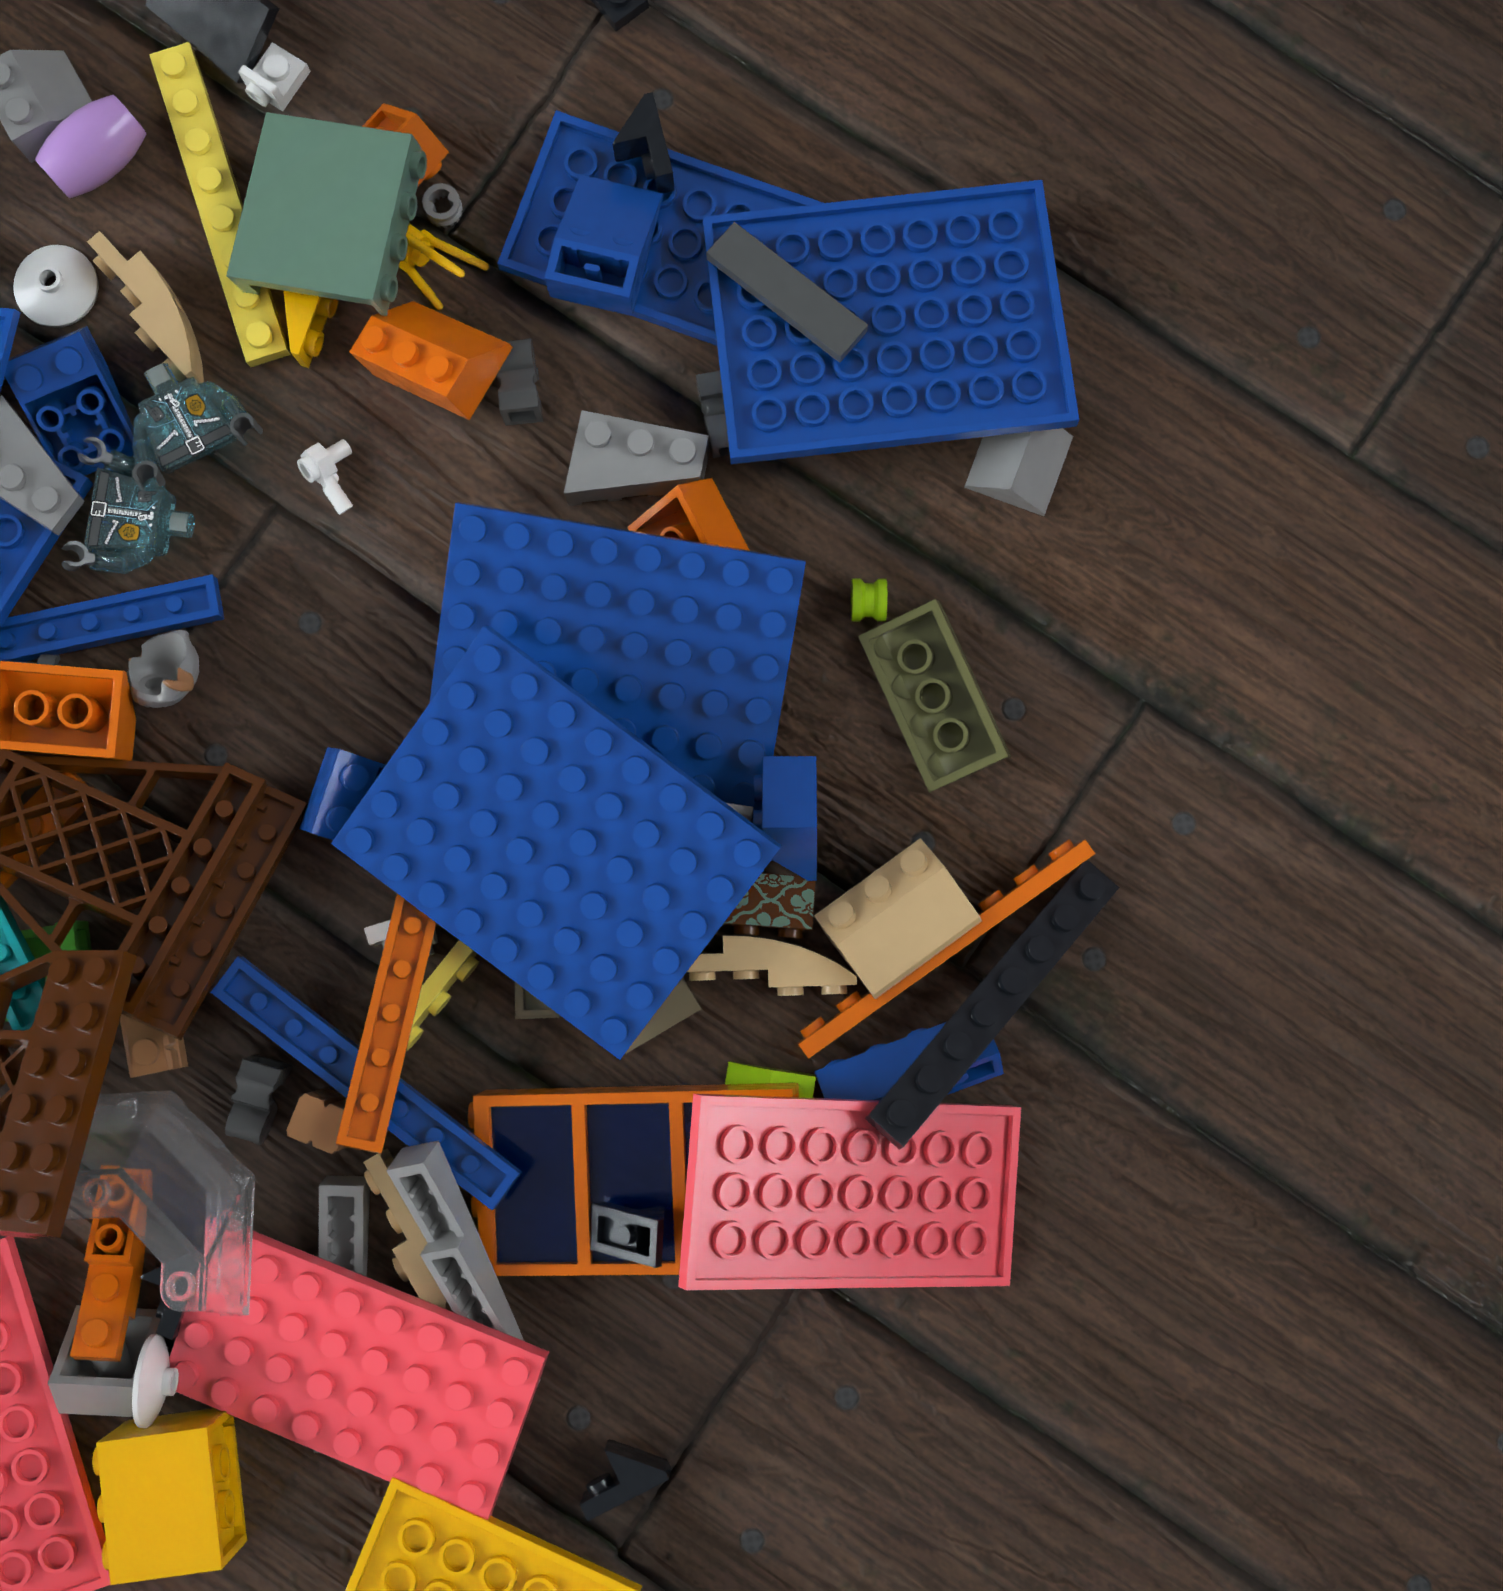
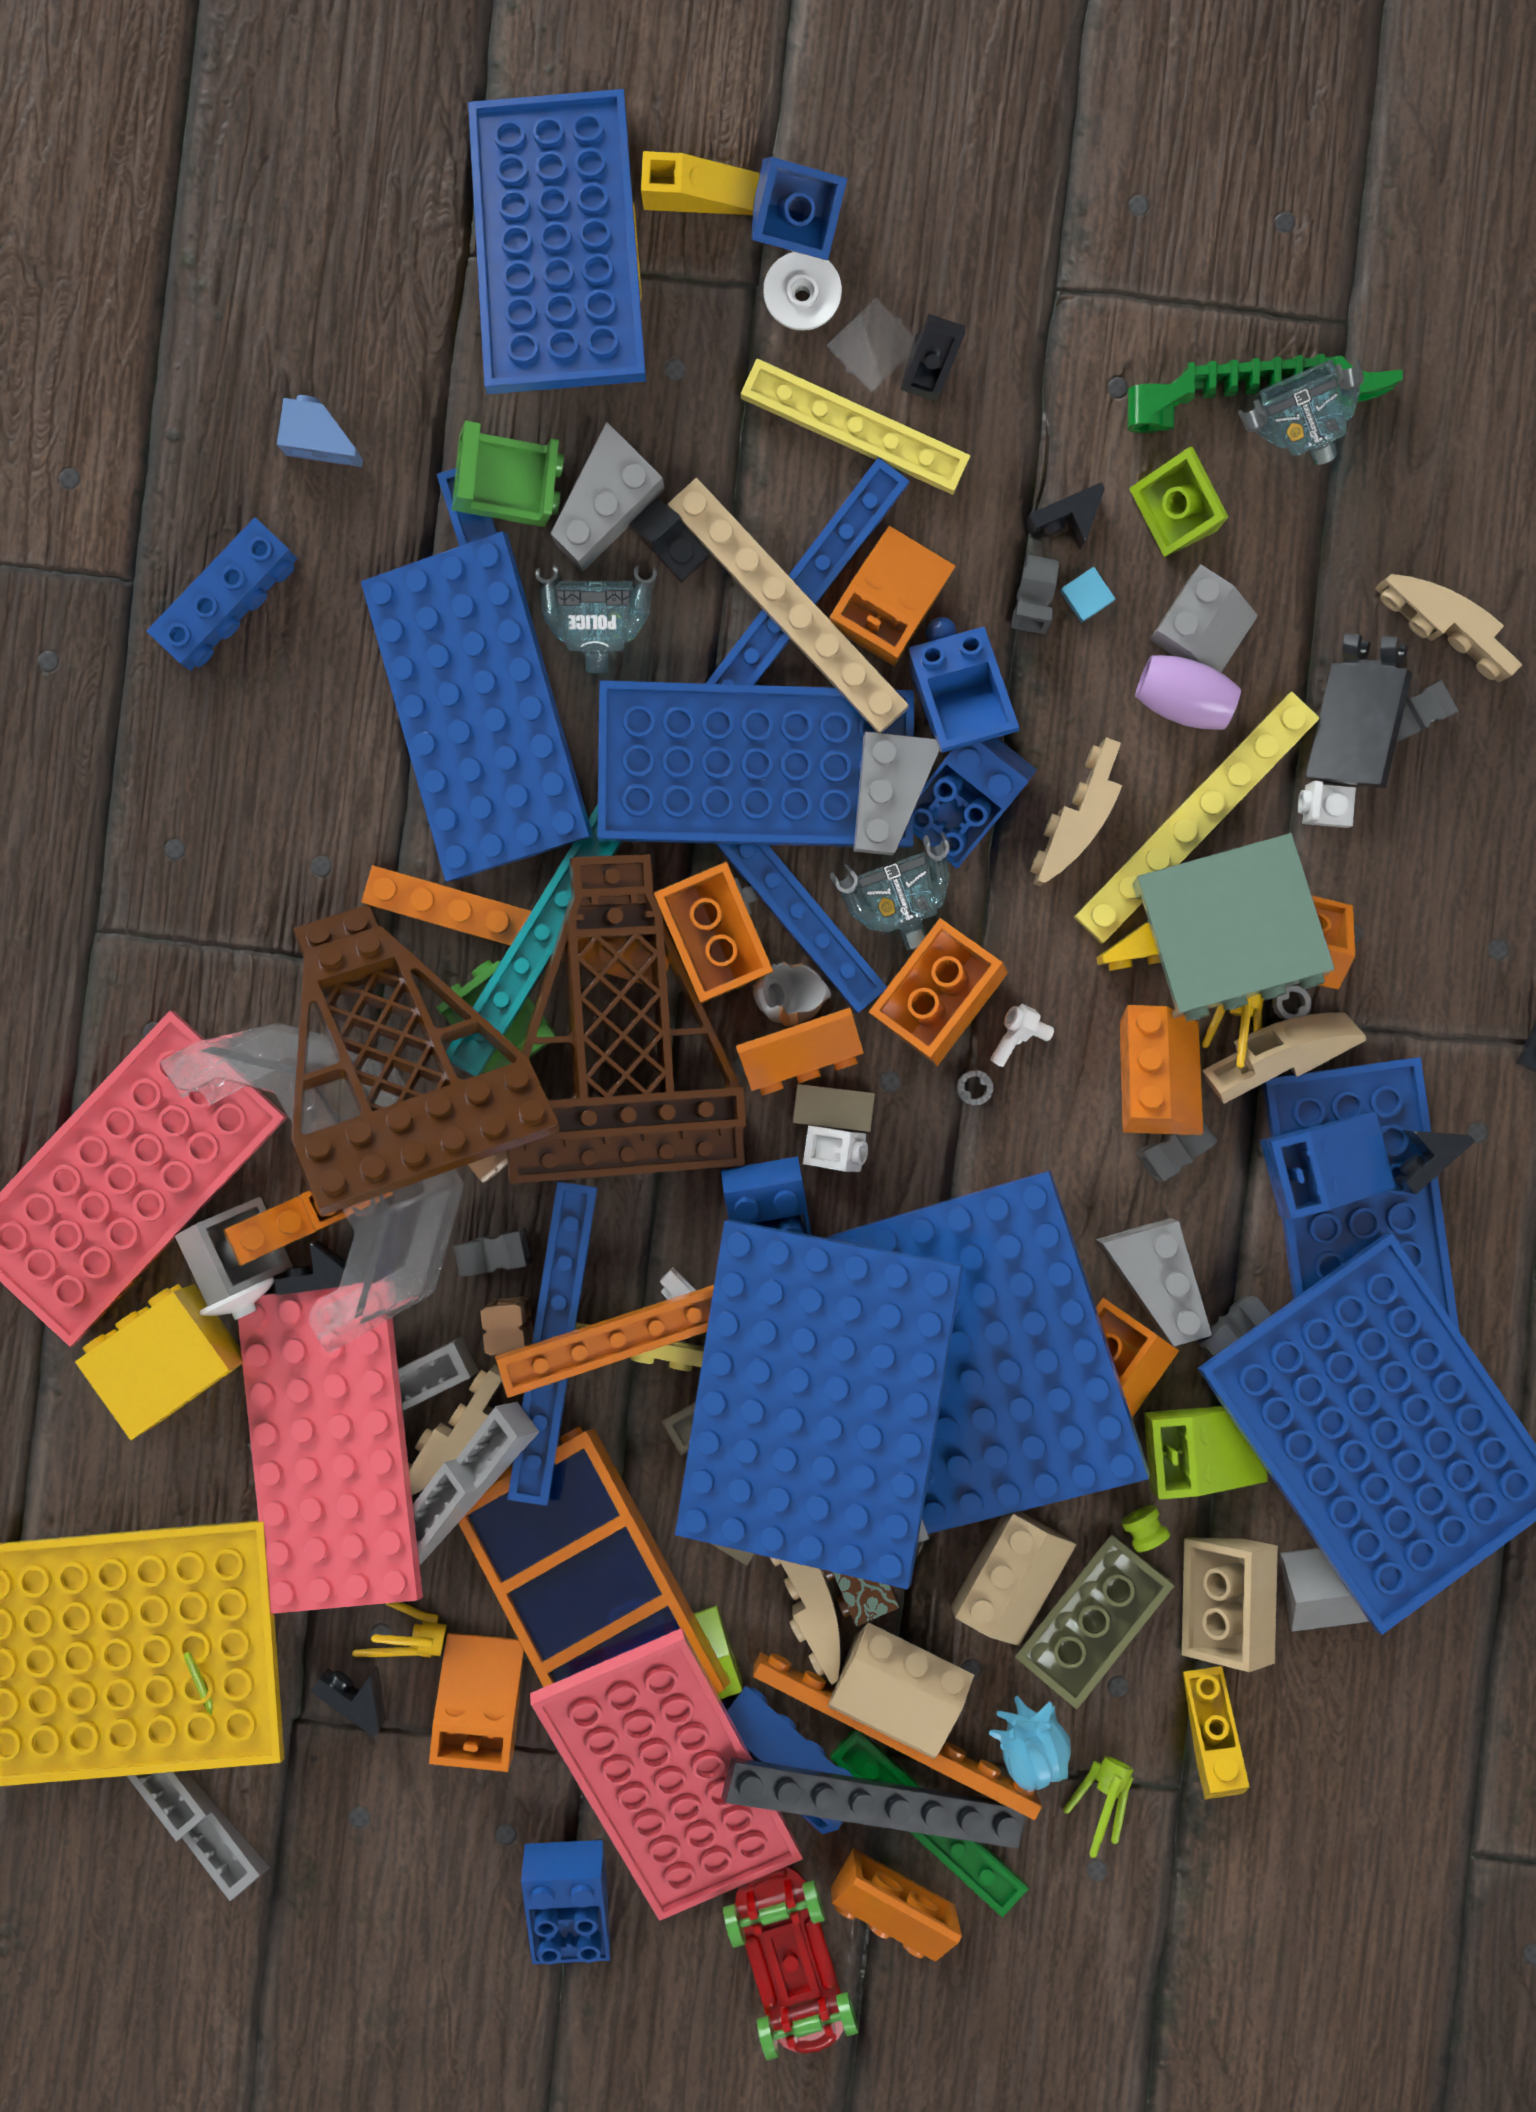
camera: 60 degrees right, 5 degrees up
(67, 298) = (1046, 736): white dish -> none
(184, 424) = (998, 900): torso -> none
(219, 687) = (801, 1051): none -> orange slope
(241, 525) = (939, 991): none -> orange slope
(302, 689) = (833, 1108): none -> dark tan tile
(340, 706) = (835, 1149): none -> white bracket
(357, 530) = (984, 1079): none -> light grey bush
(476, 223) = (1286, 1045): none -> tan slope
(603, 1371) = (425, 1639): none -> yellow plant
(628, 1232) = (547, 1620): black slope -> none
(692, 1353) = (477, 1702): none -> orange slope
(787, 292) = (1364, 1341): dark grey tile -> none
(789, 810) = (945, 1566): blue slope -> none
(820, 508) = (1198, 1453): none -> lime slope
(853, 751) = (1012, 1578): none -> tan slope
(943, 1371) = (566, 1901): none -> blue slope
(981, 556) = (1229, 1602): none -> tan slope
(1022, 817) = (1034, 1746): none -> medium azure hair
(1095, 948) = (966, 1859): none -> green tile
(1102, 757) = (1115, 1781): none -> lime plant
(1106, 637) = (1214, 1734): none -> yellow slope
(1115, 1040) = (895, 1907): none -> orange slope
(1119, 1175) = (790, 1962): none -> red piece

